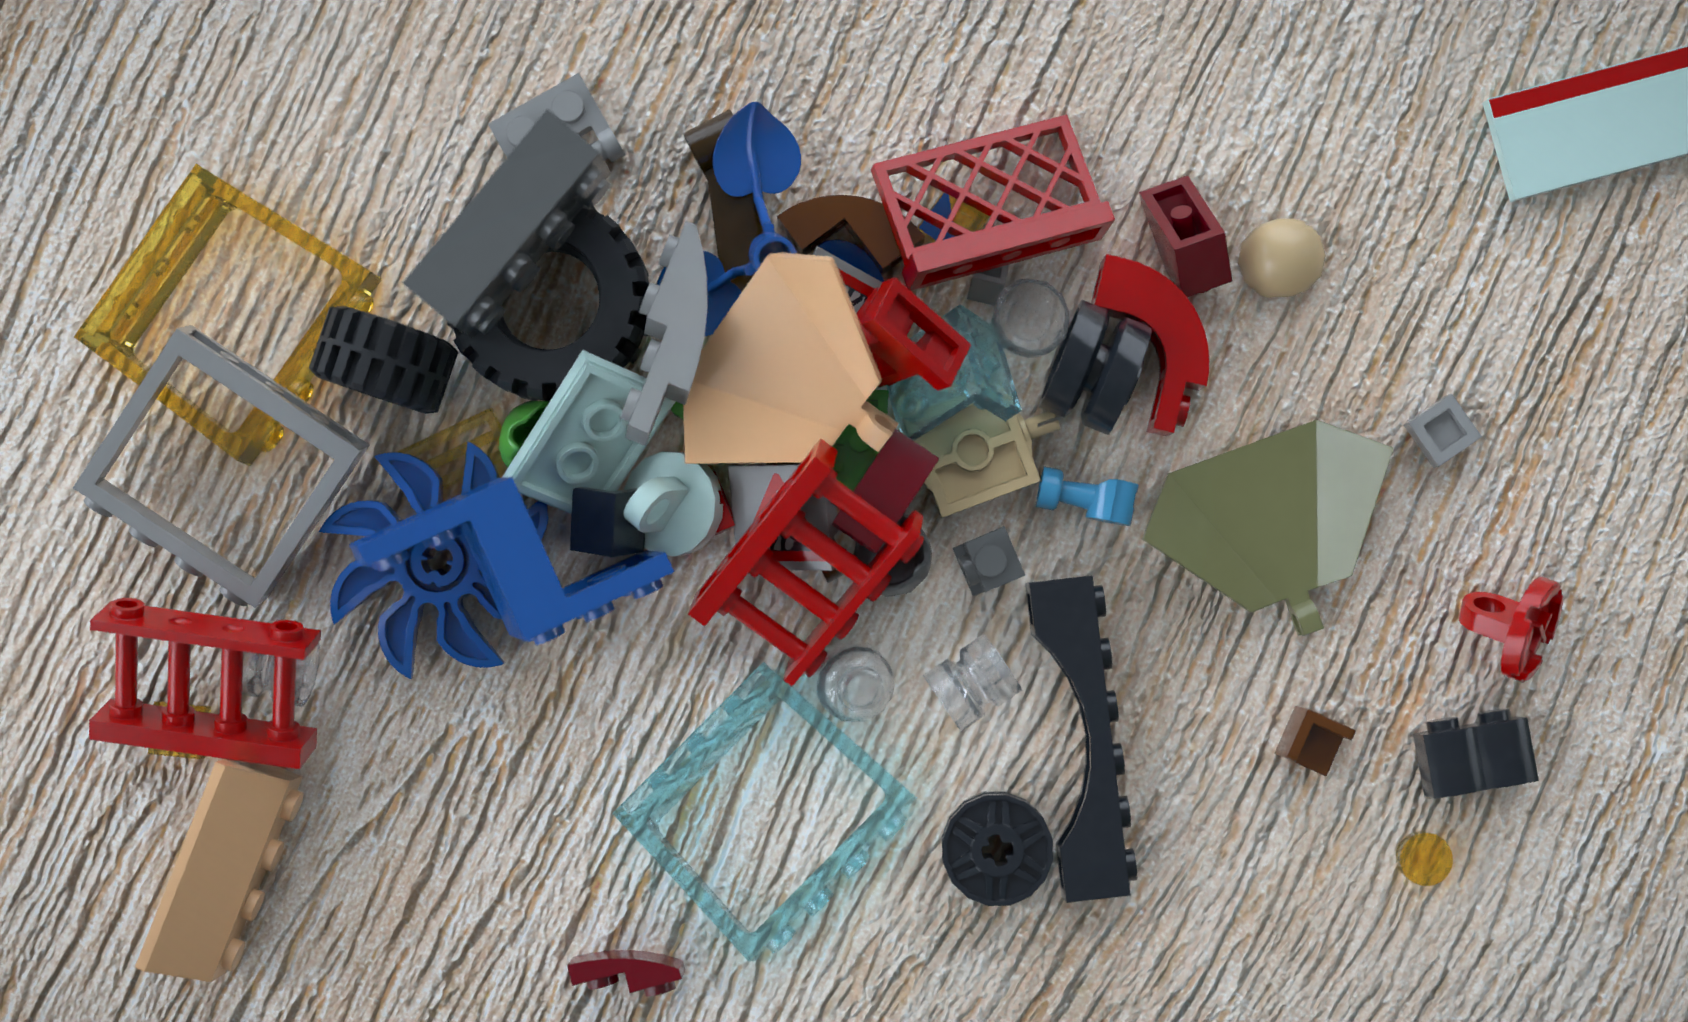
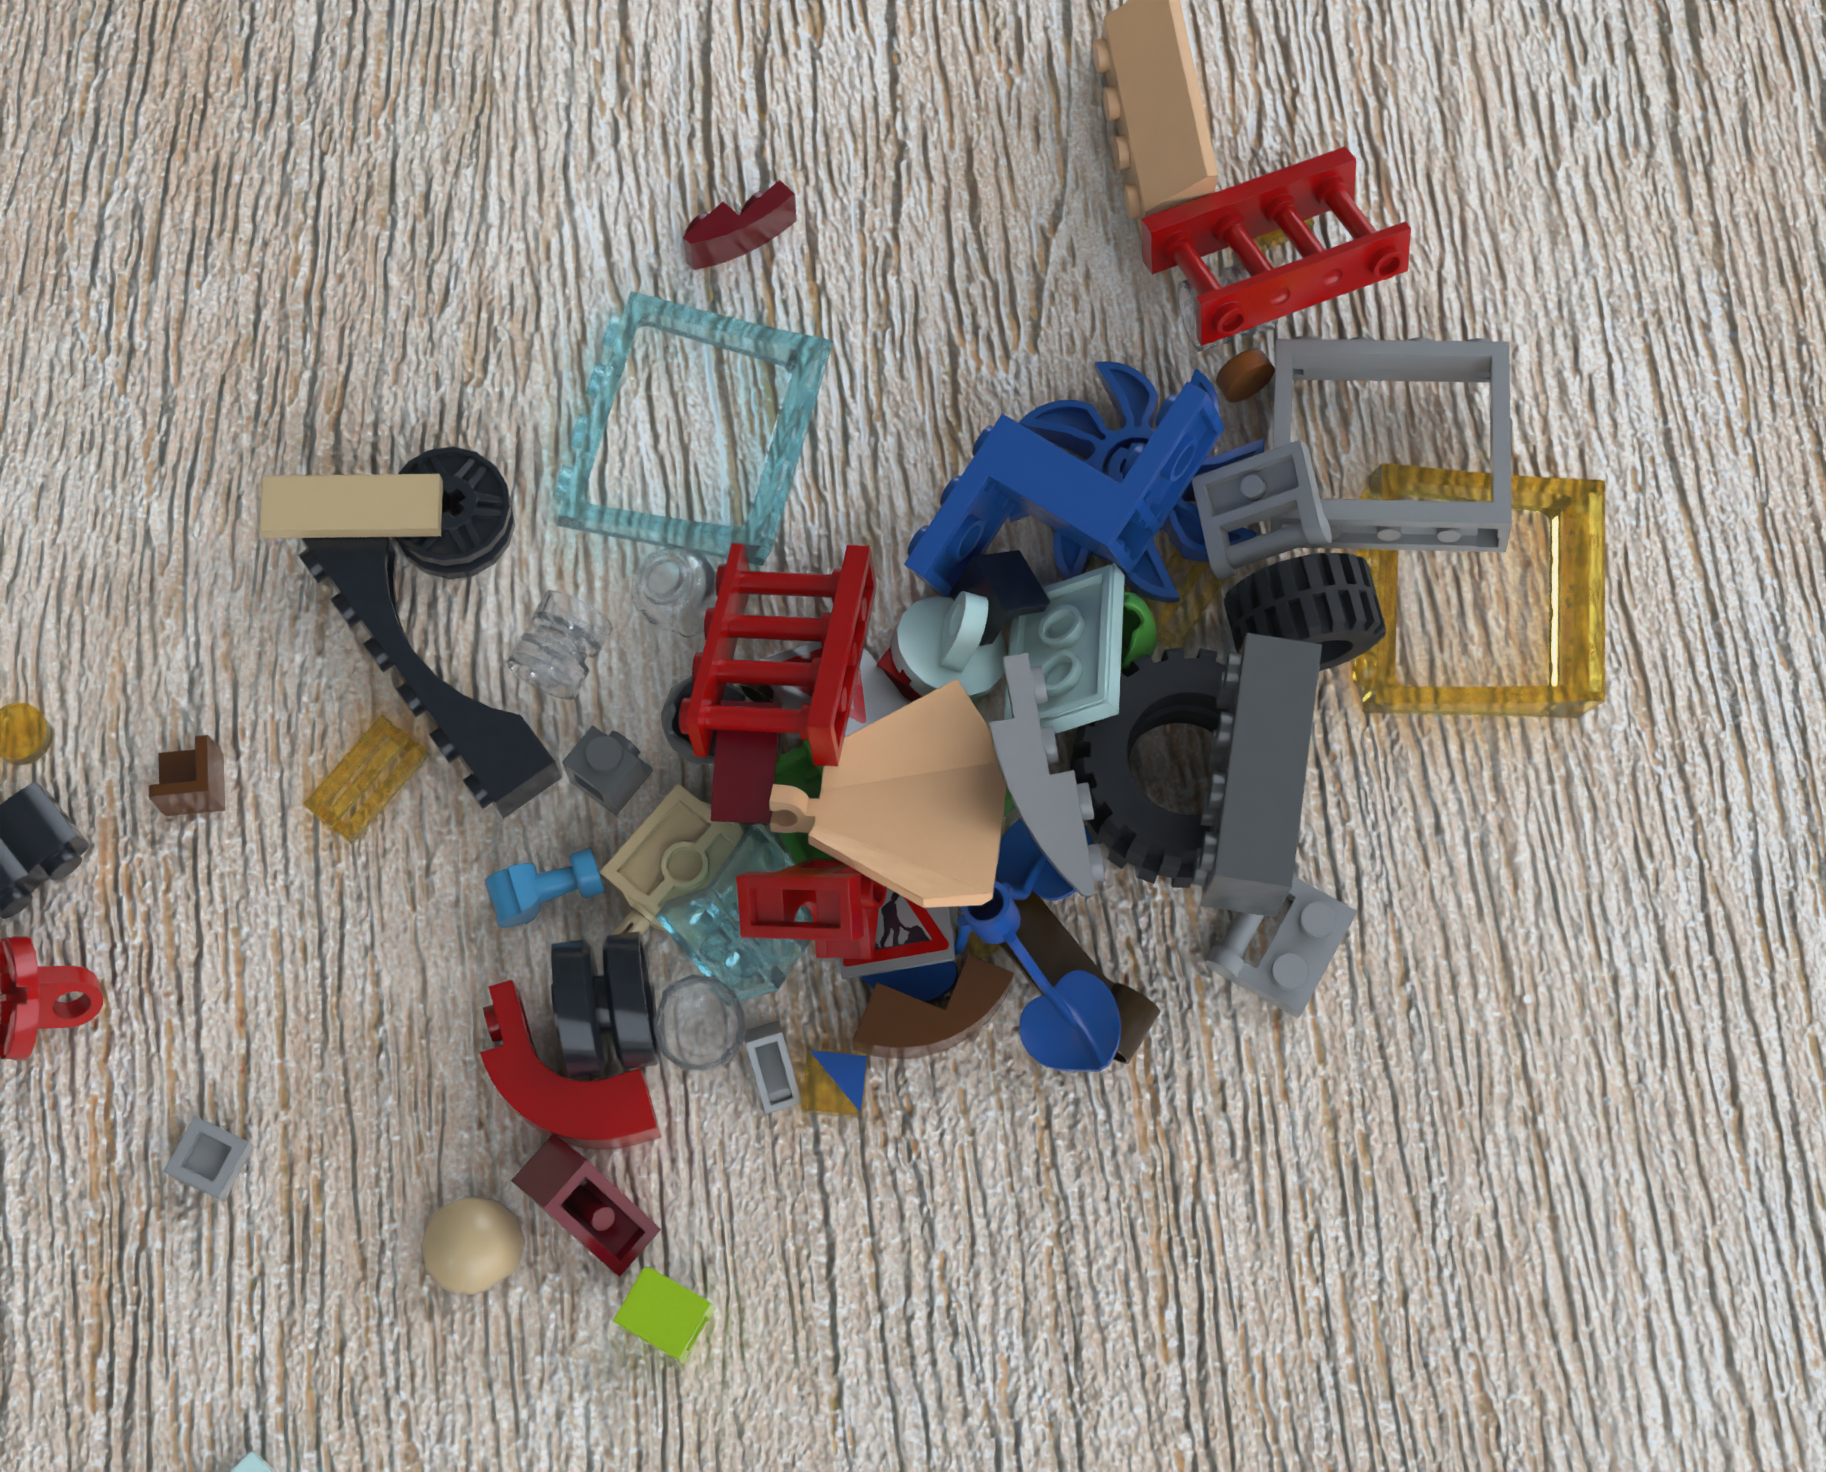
camera: 145 degrees right, 15 degrees down
(297, 600) = (1244, 375): none -> dark orange tile
(359, 476) = (1254, 492): none -> light grey plate
(1016, 237) = (765, 1086): fence -> none
(1077, 887) = (351, 506): none -> tan tile
(1173, 119) = (664, 1314): none -> lime panel
(1217, 648) = (348, 767): none -> clear yellow tile
(1273, 516) = (346, 969): olive panel -> none

